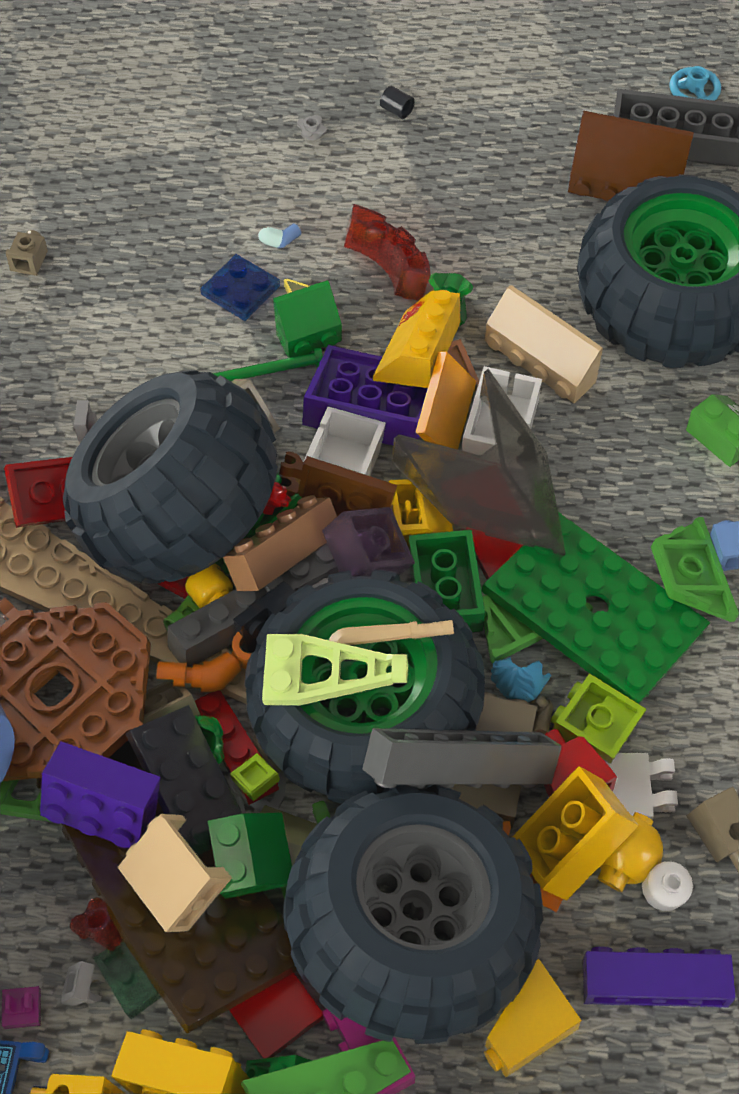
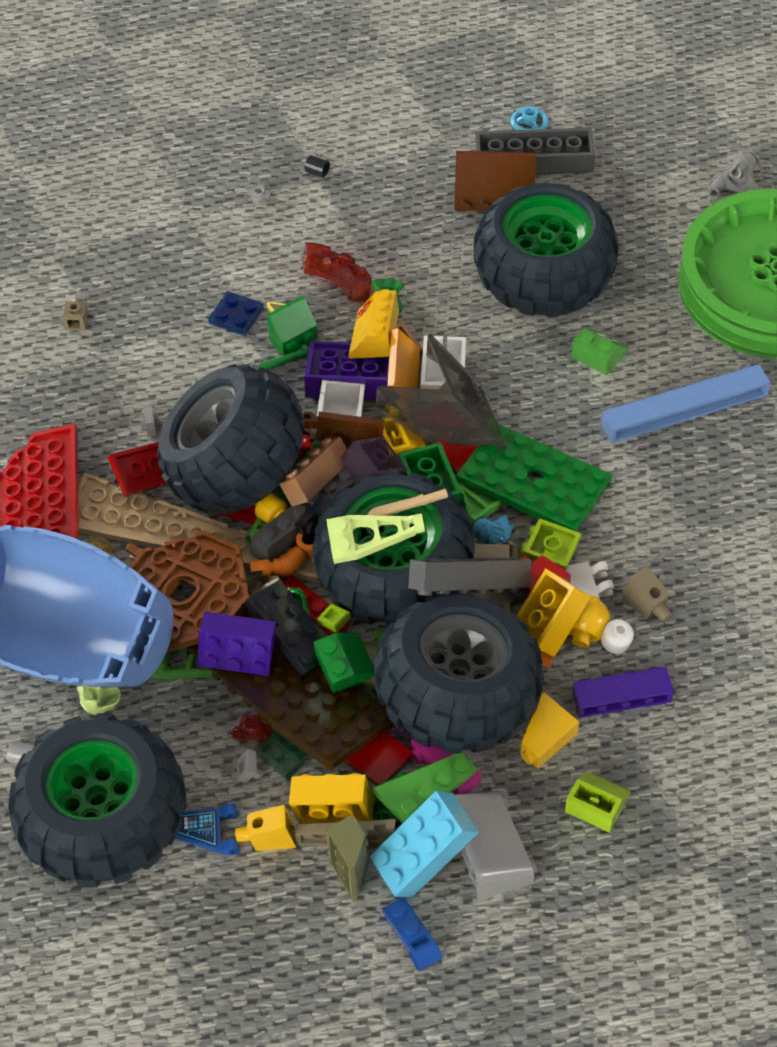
camera: 10 degrees left, 5 degrees down
(21, 1007) = (212, 788): magenta tile -> none
(171, 875) = (298, 677): tan panel -> none
(277, 237) = (255, 275): arm -> none
(543, 345) = (461, 315): tan slope -> none
(693, 570) = (595, 444): bright green wing -> none

